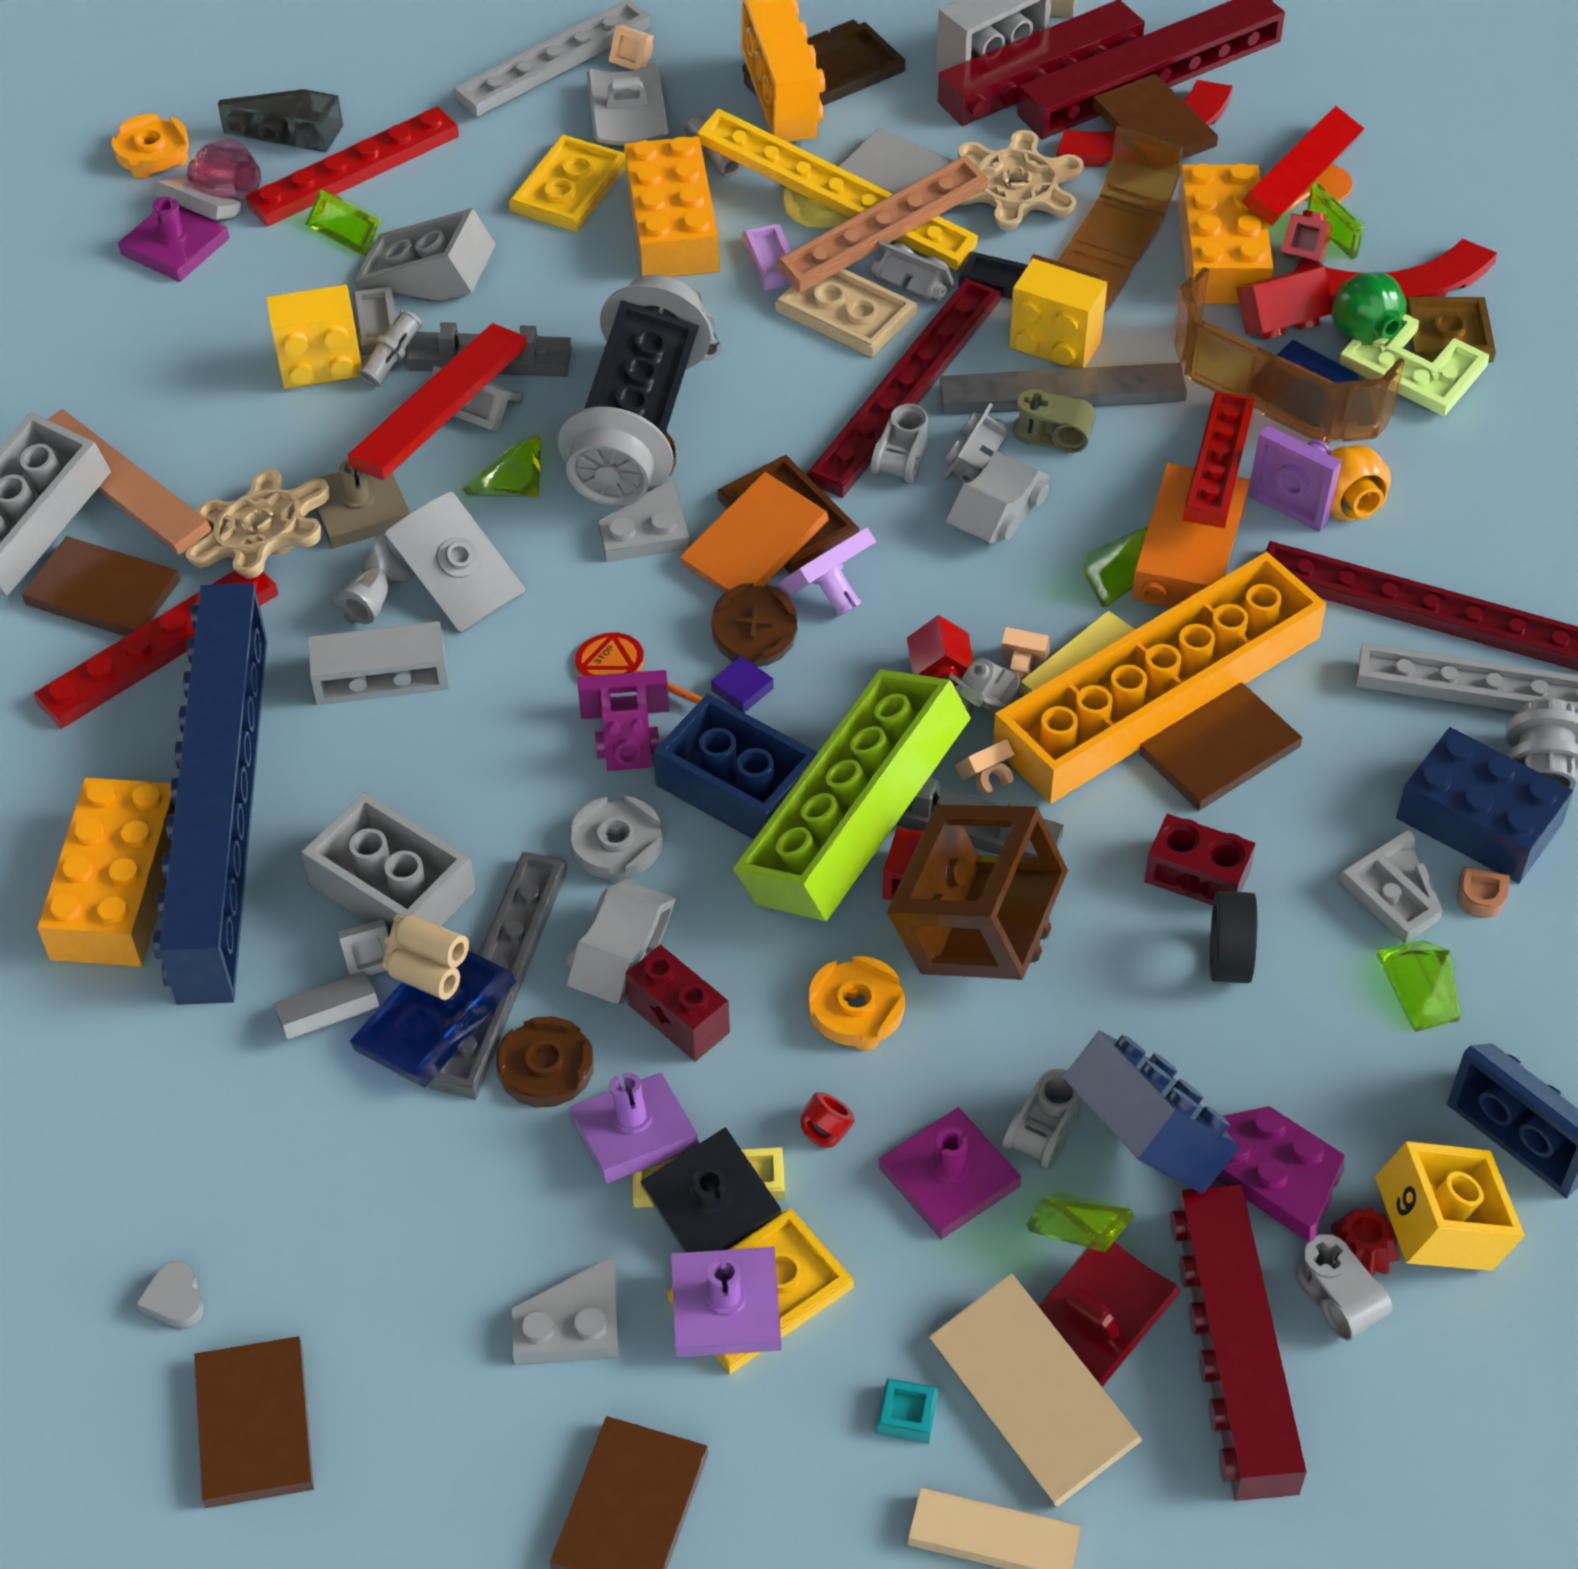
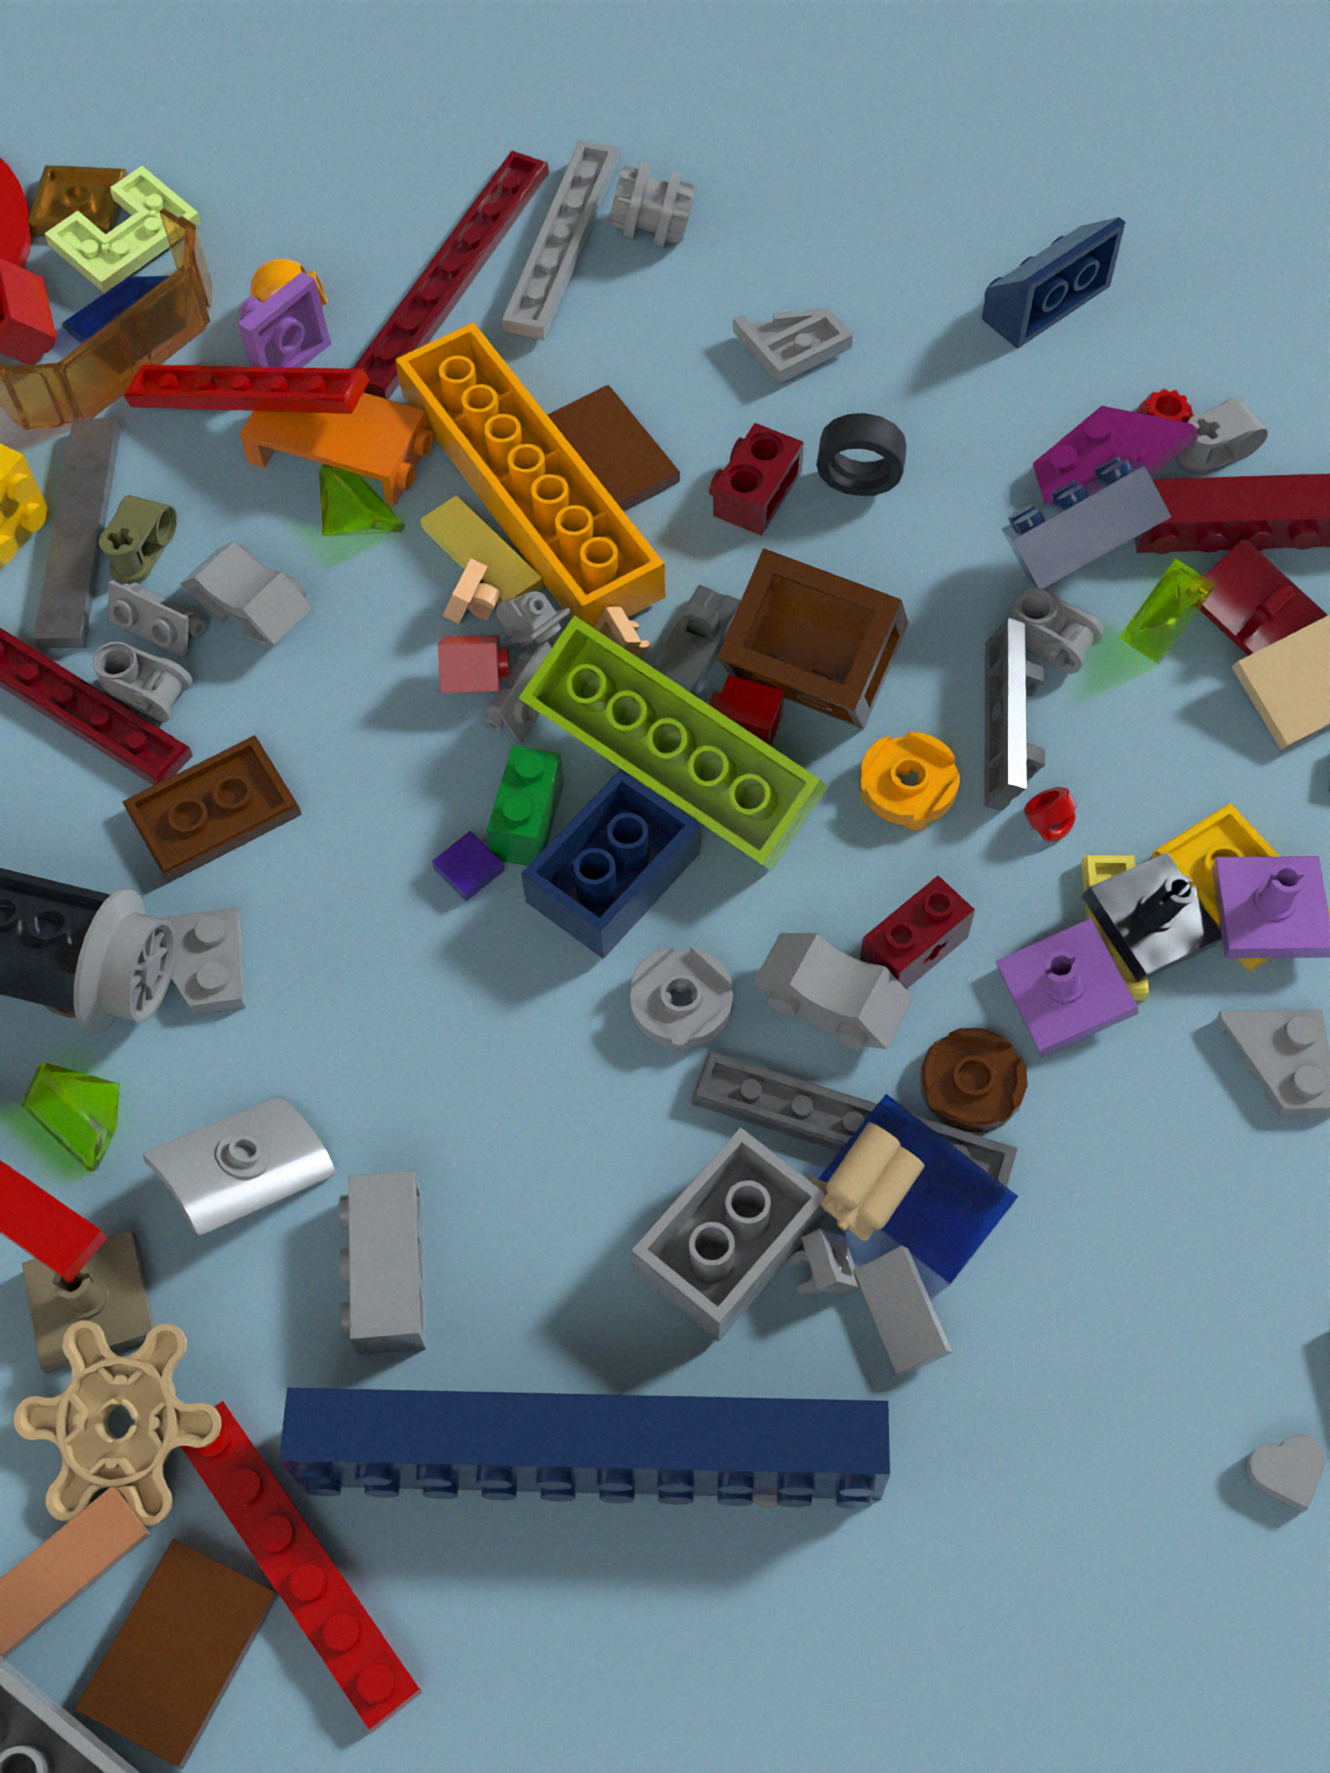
camera: 85 degrees left, 10 degrees up
(108, 874) = (697, 1582): light orange brick -> none
(368, 589) = (264, 1275): light grey animal -> none
(617, 654) = (410, 1001): piece -> none
(626, 731) = (489, 974): magenta tile -> none
(754, 535) = (258, 835): orange tile -> none
(754, 624) = (387, 845): reddish brown tile -> none
(797, 705) = (525, 805): none -> green brick
(827, 573) = (329, 760): lavender tile -> none
(949, 1173) = (1103, 718): magenta tile -> none
(981, 1076) = (1007, 684): none -> dark grey hinge
(1369, 307) = (55, 241): green plant -> none
(1422, 982) = (893, 339): clear neon green slope -> none
(1449, 1206) = (1155, 342): yellow brick -> none
(1482, 892) = (795, 286): nougat tile -> none
(1484, 804) = (709, 261): dark blue brick -> none

